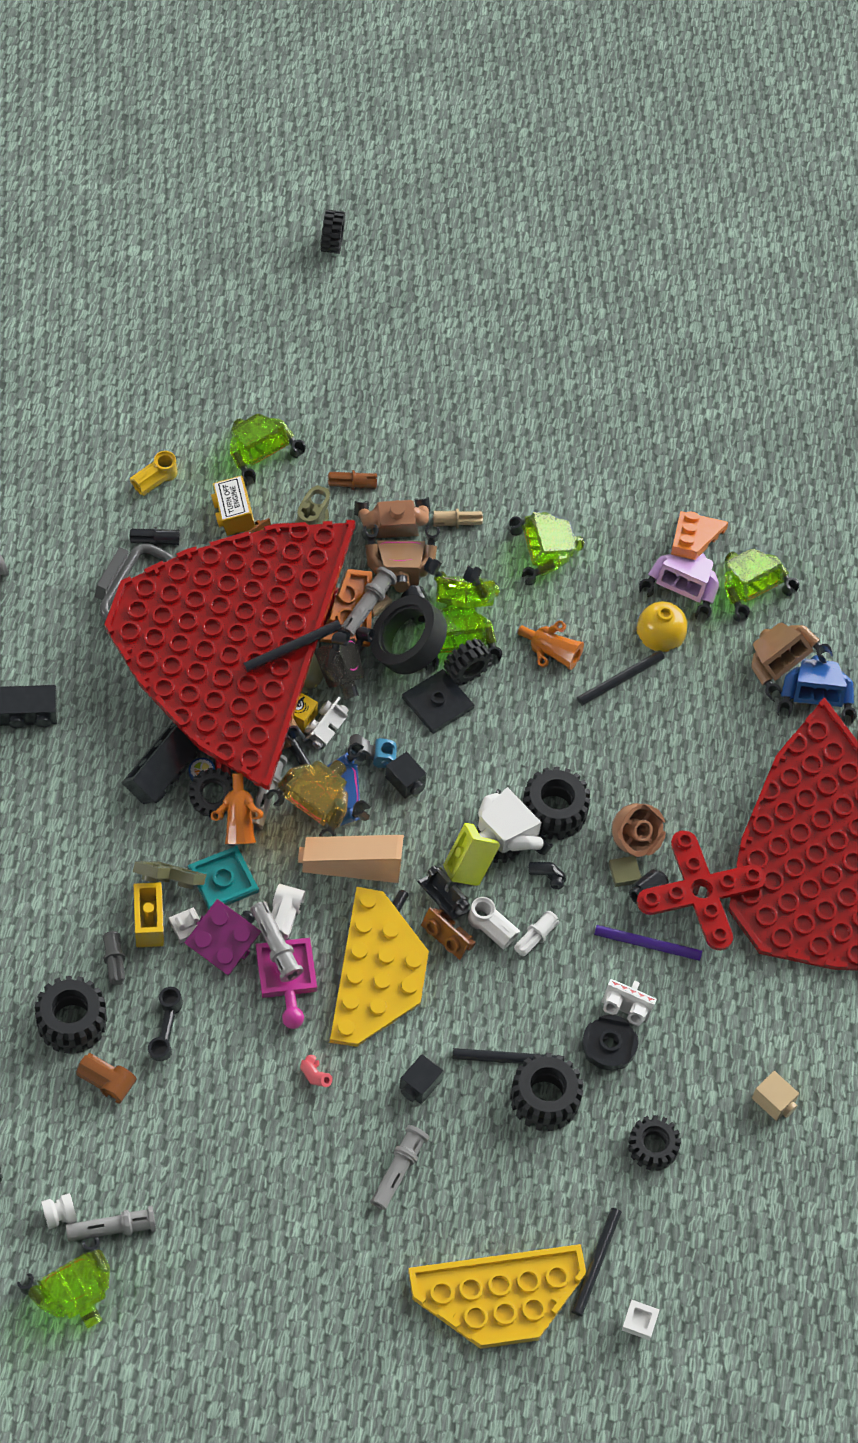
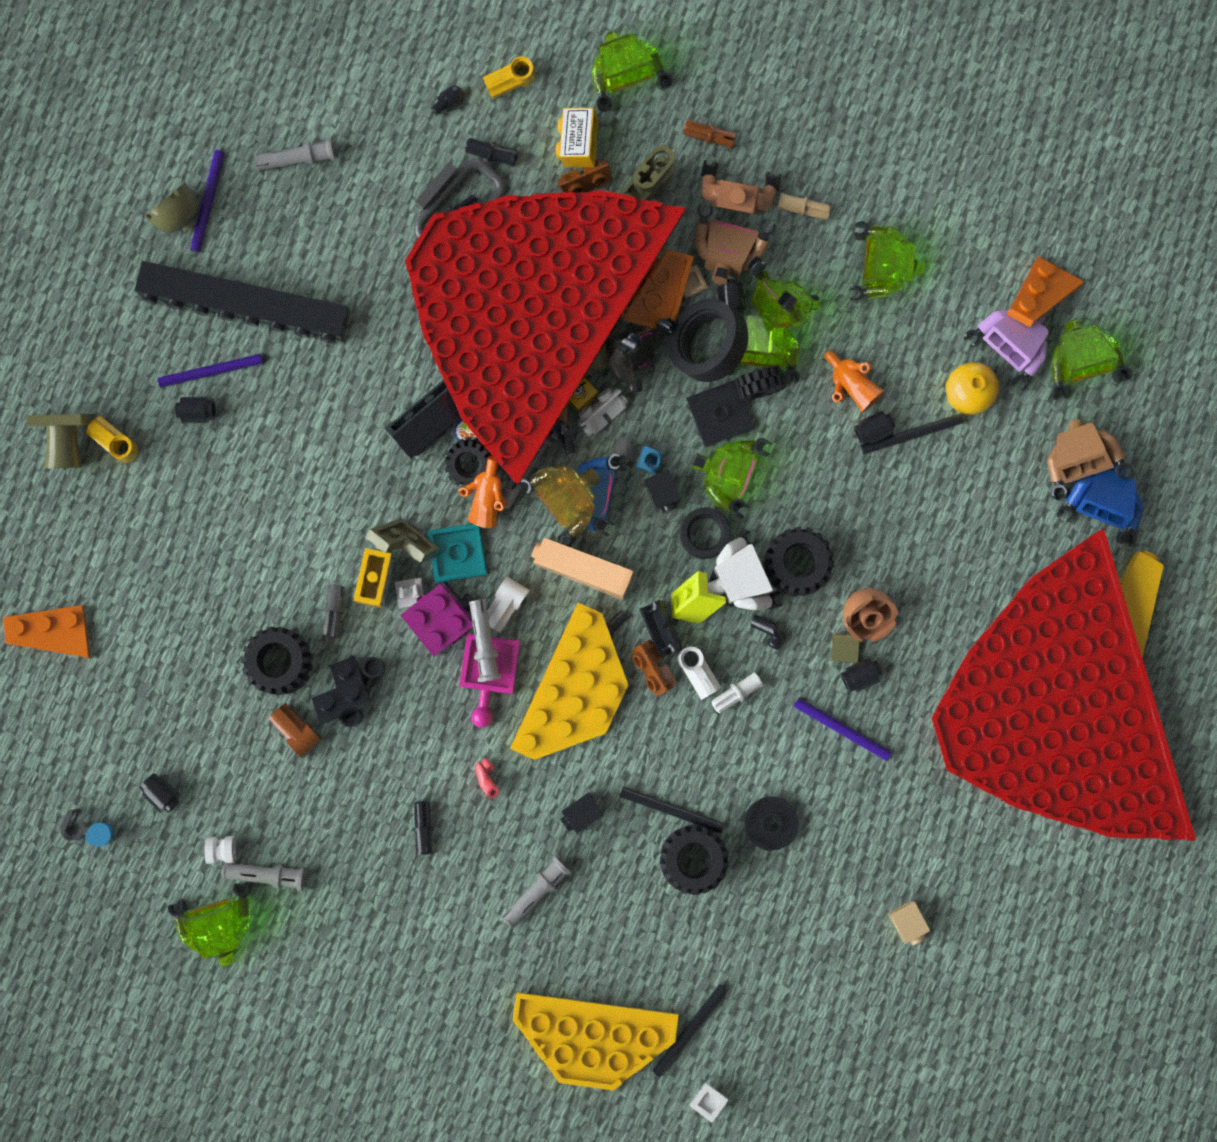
camera: 25 degrees right, 25 degrees up
(102, 502) = (448, 98): none -> black cylinder
(151, 1028) = (348, 695): none -> black plate
(264, 1137) = (422, 828): none -> black axle
(292, 646) = (581, 338): black bar -> none
(374, 593) = (688, 283): light grey pin -> none
(452, 784) = (710, 513): none -> black tyre
(466, 742) = (730, 472): none -> clear neon green torso
(585, 678) = (874, 428): none -> black brick
(629, 1001) = (804, 786): white hips -> none
(659, 1128) = (762, 935): black tyre -> none
(696, 874) = (927, 697): red piece -> none

